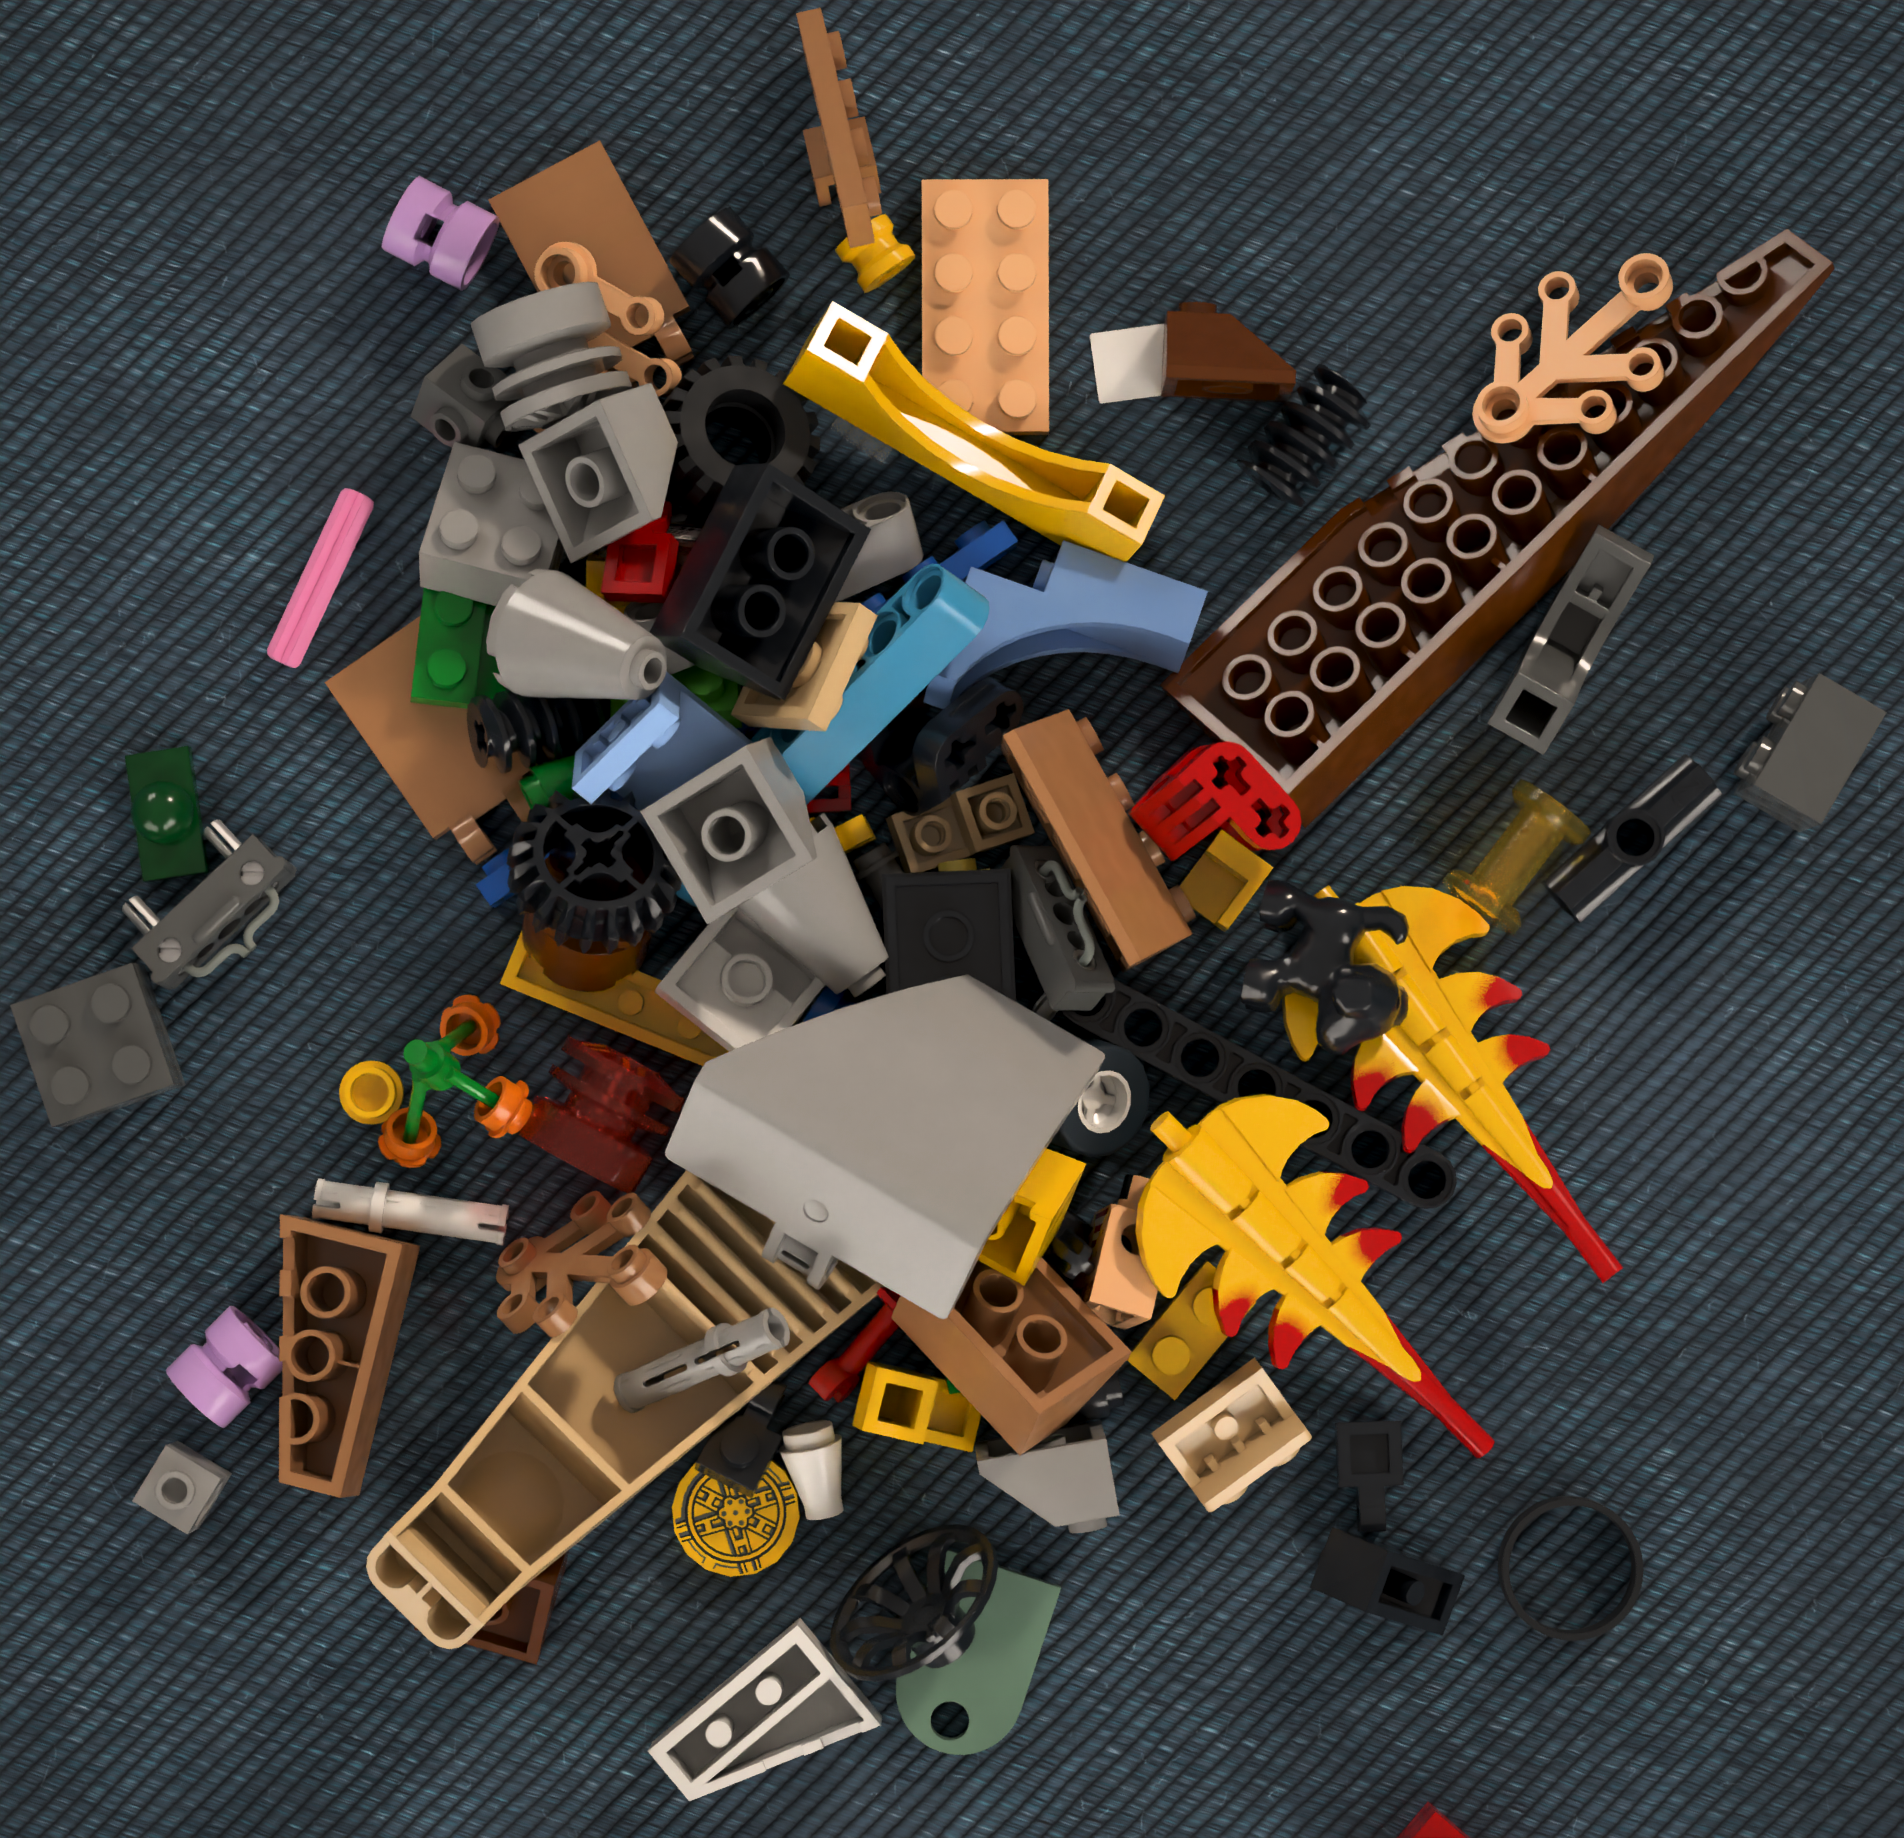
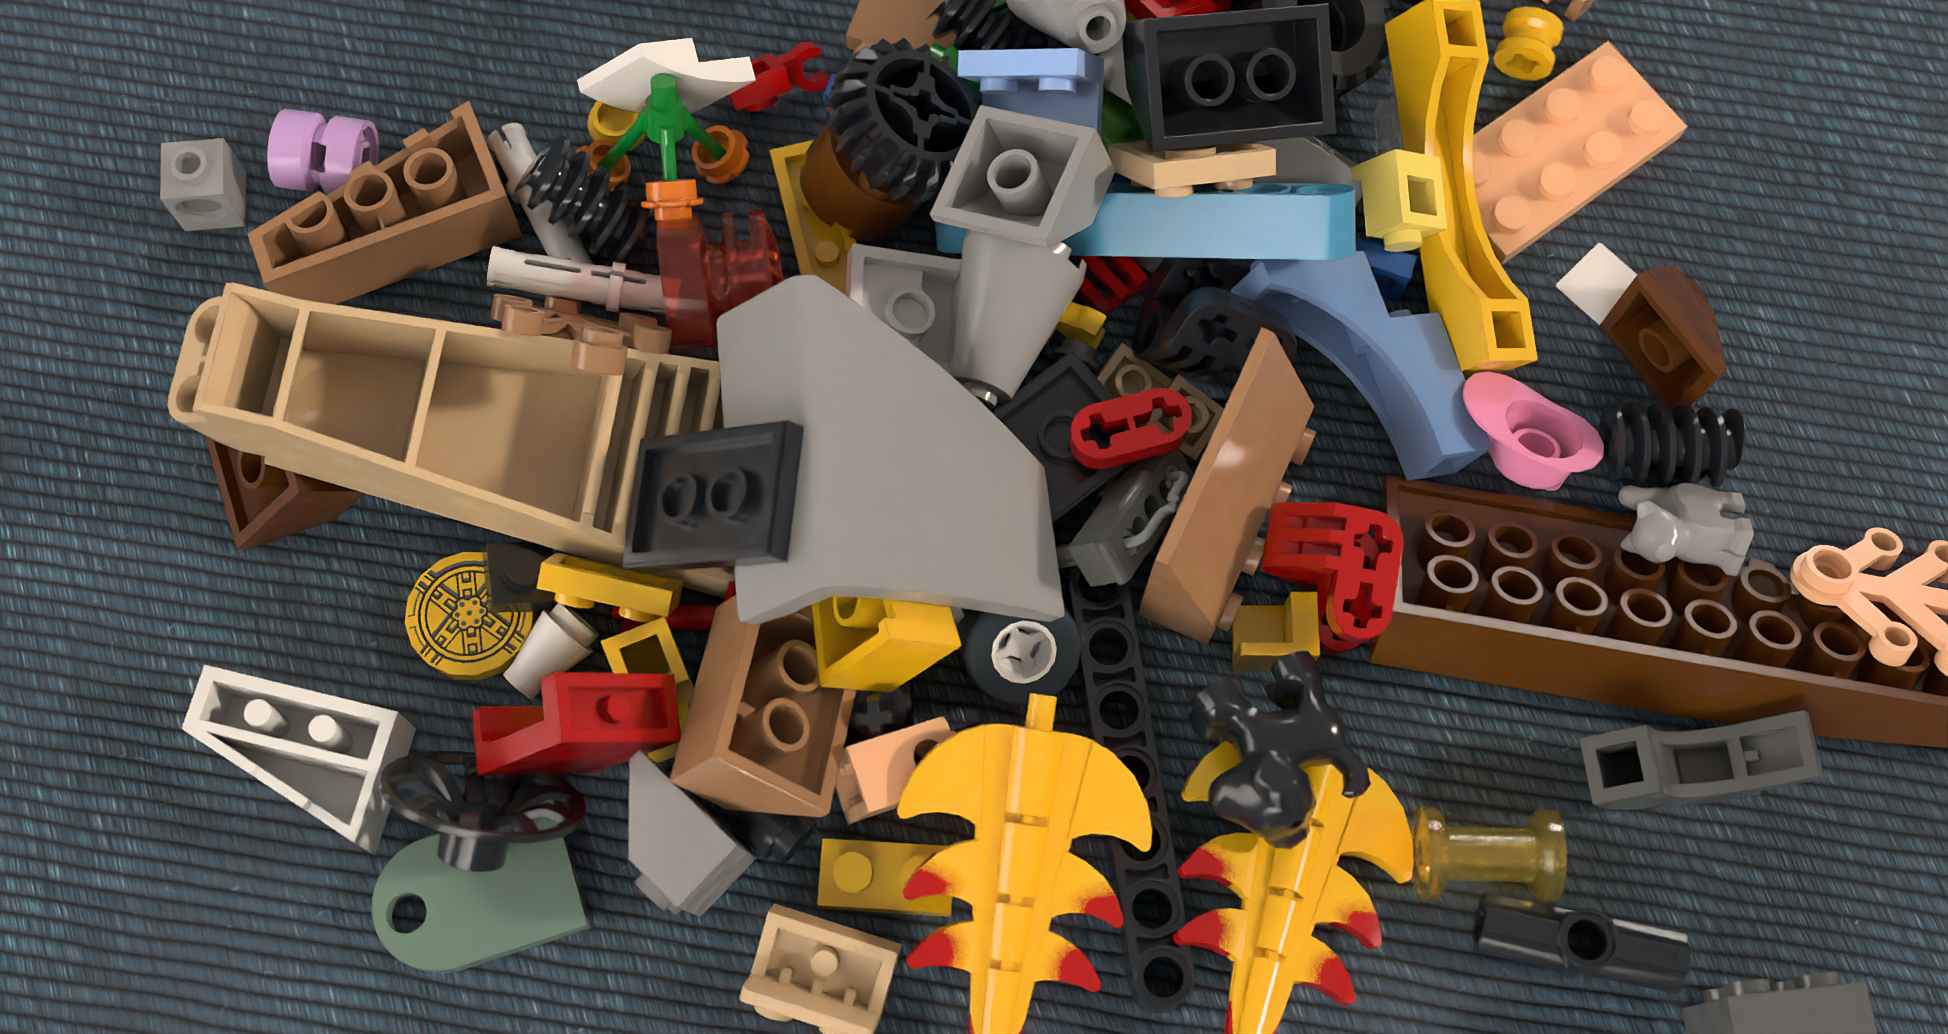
camera: 50 degrees right, 15 degrees down
(389, 1032) = (627, 78): none -> white slope
(425, 939) = (776, 76): none -> red plate
(444, 1176) = (586, 200): none -> black piece
(512, 1232) = (576, 280): none -> white pin
(756, 1337) = (583, 471): light grey pin -> none
(810, 1387) = (583, 581): none -> yellow plate
(827, 1268) = (714, 498): none -> black tile
(915, 1496) = (582, 726): none -> red panel
(952, 501) = (1402, 198): none -> light yellow brick
(973, 876) = (1126, 414): none -> red beam
(1213, 544) = (1530, 435): none -> bright pink piece
(1389, 478) = (1688, 524): none -> light grey animal

